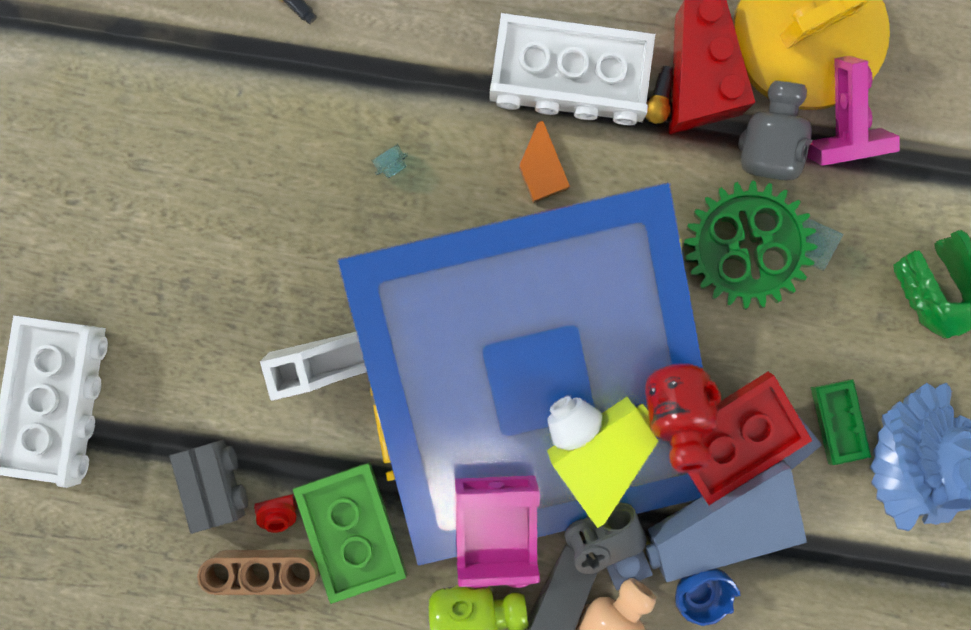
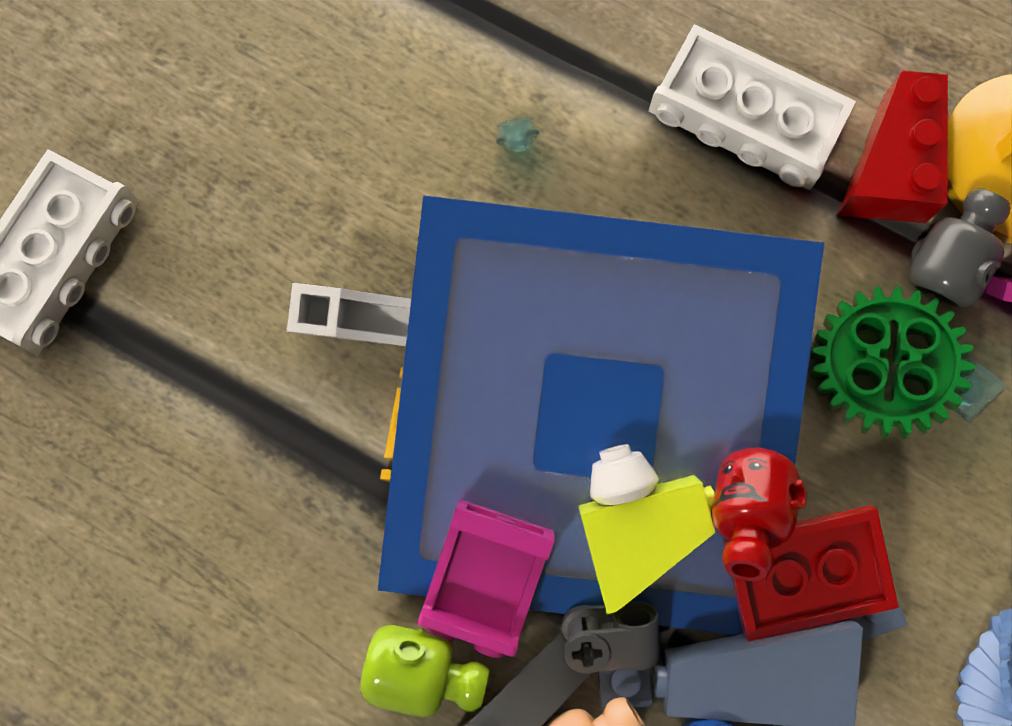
camera: 20 degrees right, 10 degrees down
(209, 485) = (178, 407): dark grey brick -> none
(244, 581) = (172, 522): medium nougat beam -> none
(276, 514) = (239, 469): red plate -> none
(350, 533) = (314, 521): bright green plate -> none
(542, 167) = (682, 194): orange tile -> none
(658, 105) = (834, 178): piece -> none
(841, 422) = (938, 606): green plate -> none

